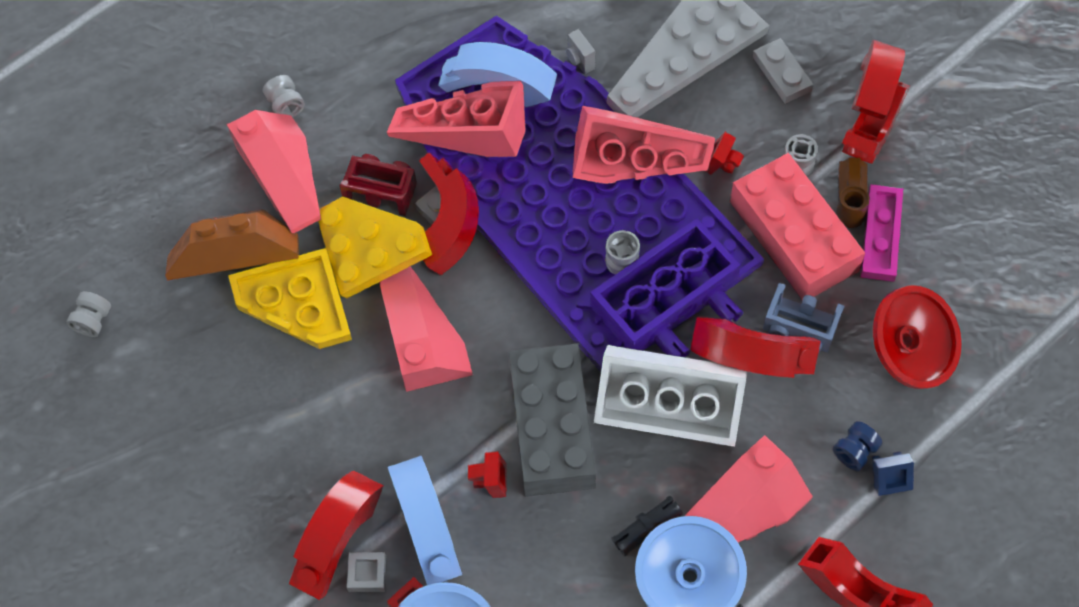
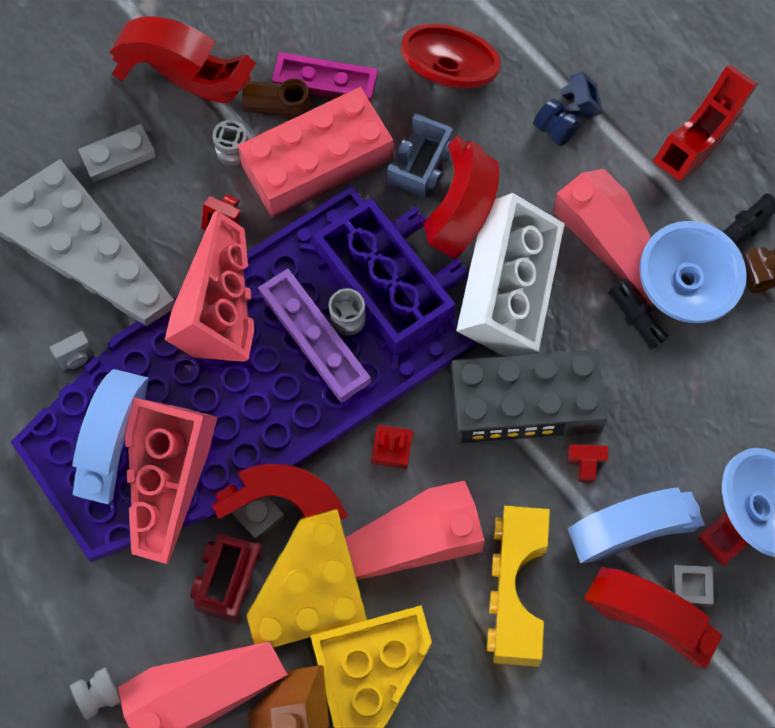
camera: 90 degrees left, 5 degrees up
(326, 413) = (516, 632): none -> yellow arch
(503, 310) = (392, 446): none -> red tile
(592, 231) = (314, 335): none -> medium lavender plate

